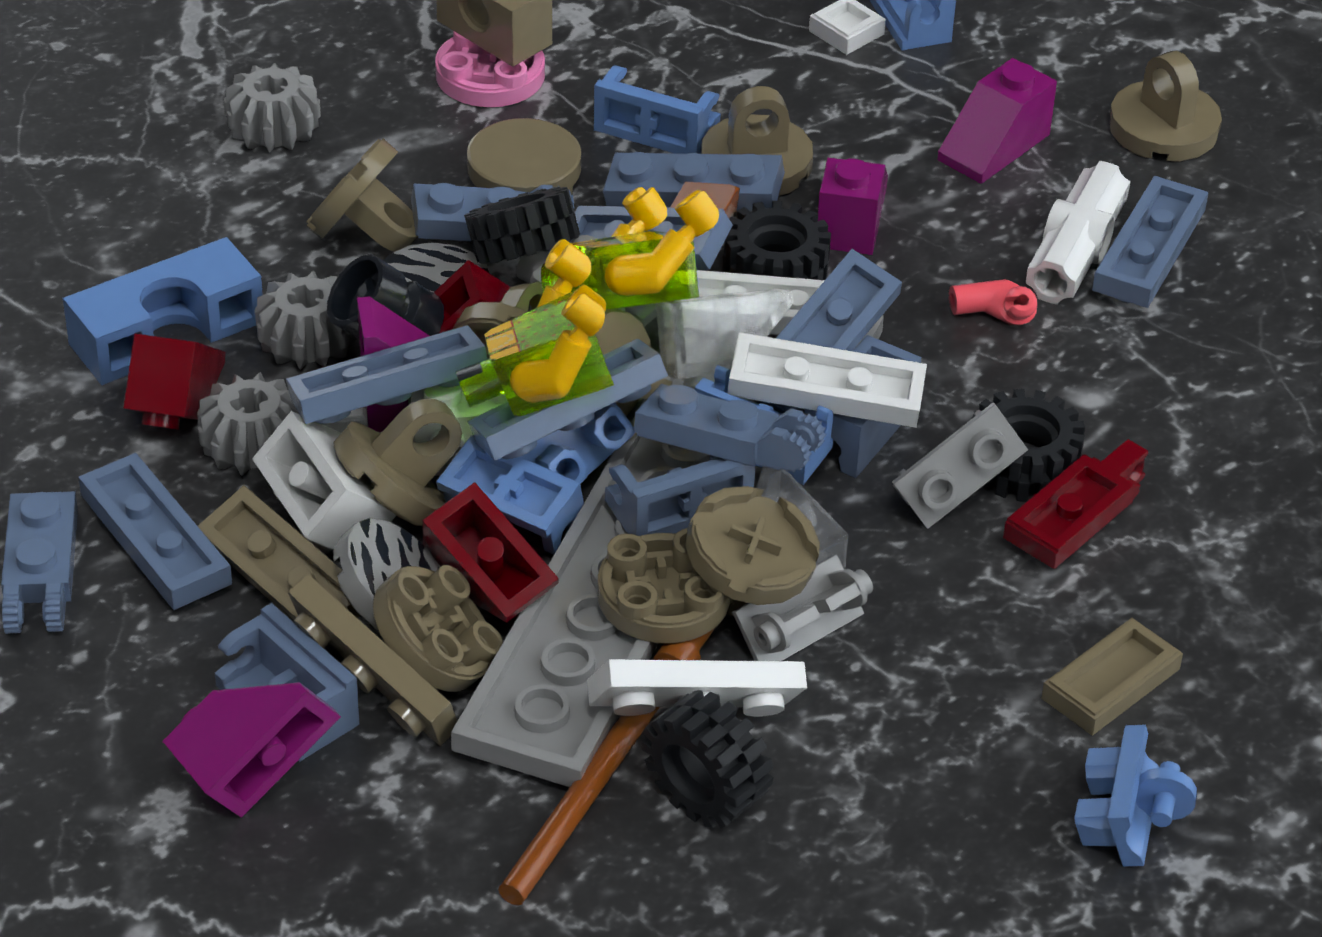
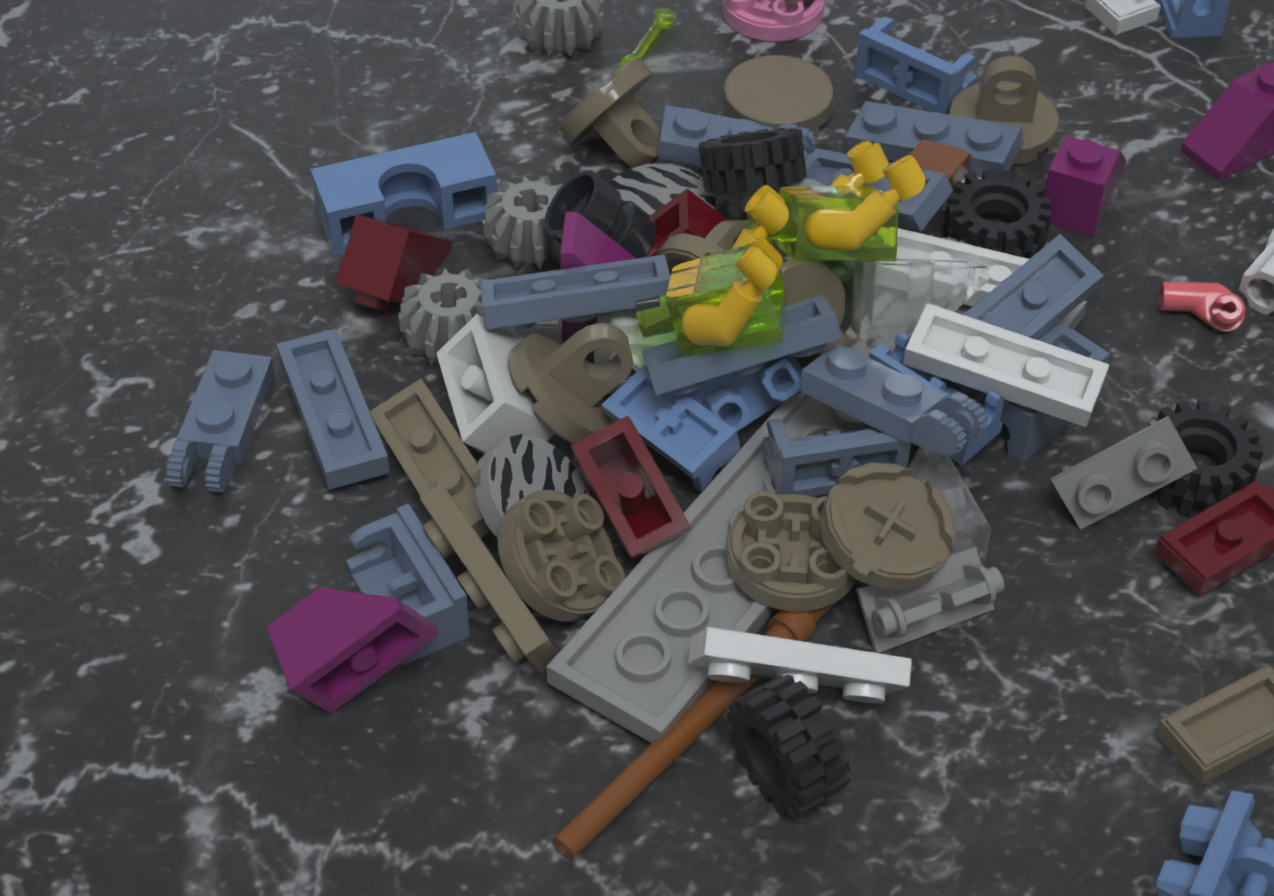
camera: 15 degrees right, 5 degrees up
(377, 99) = (661, 19): none -> clear neon green hinge

